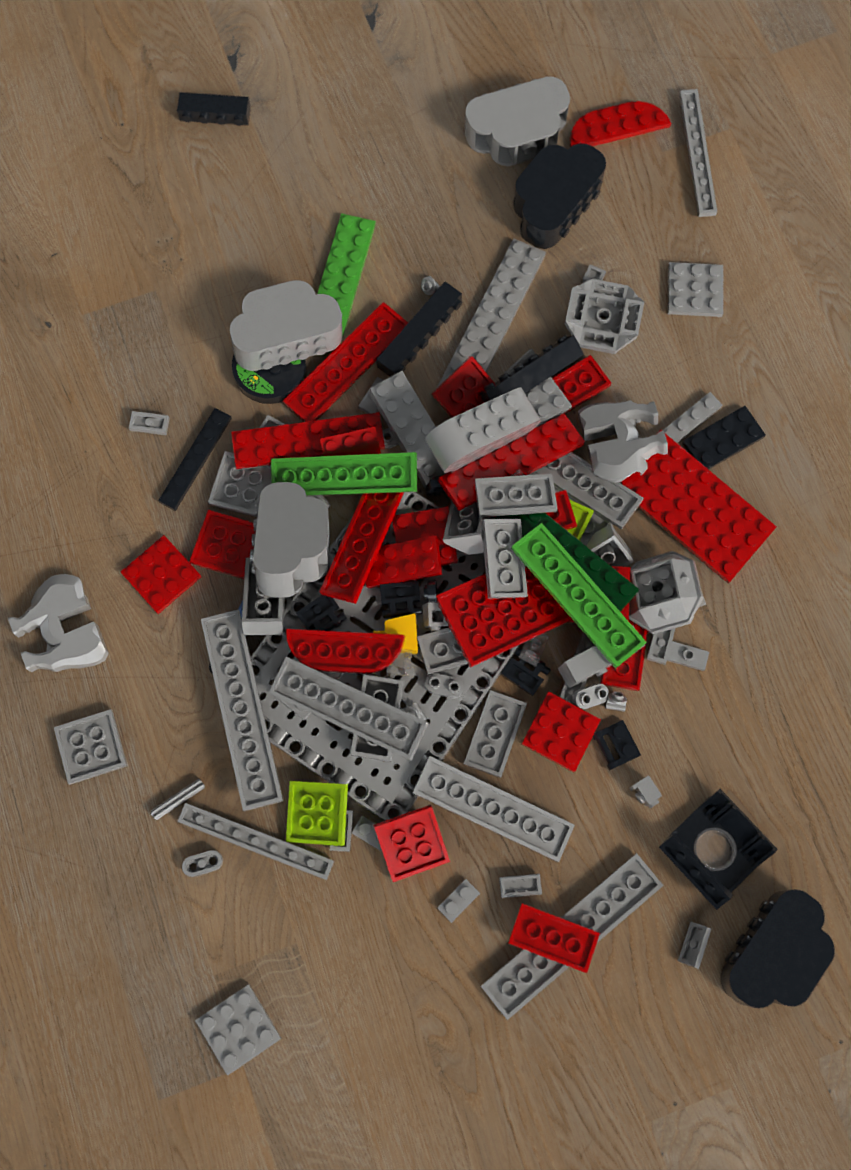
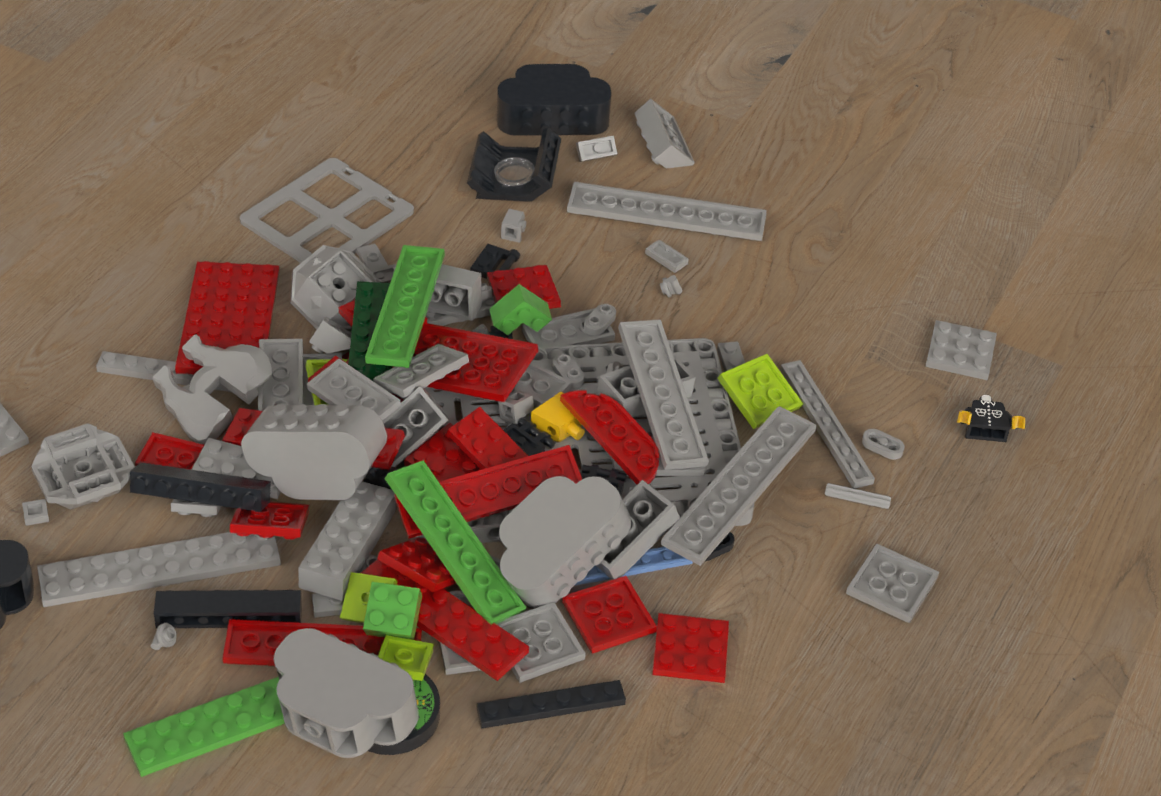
camera: 135 degrees left, 30 degrees down
(54, 602) = (822, 704): light grey animal -> none
(149, 423) = (555, 767): light grey plate -> none
(153, 965) = (989, 420): none -> black torso
(288, 388) = (408, 654): none -> lime plate
(323, 401) = (392, 611): none -> bright green brick
(353, 405) = (357, 595): none -> lime plate
(411, 843) = (712, 324): red plate -> none
(431, 591) = (501, 408): black plate -> none
(458, 900) = (719, 285): light grey plate -> none
(484, 761) = (599, 319): none -> light grey plate
(484, 853) = (670, 286): none -> light grey plate
(493, 809) = (628, 286): light grey plate -> none
(528, 698) = (520, 307): none -> bright green brick
(554, 938) = (683, 211): red plate -> none
(668, 1021) = (663, 136): none -> light grey slope
(724, 438) = (136, 336): black plate -> none
(765, 664) = (327, 217): none -> light grey window

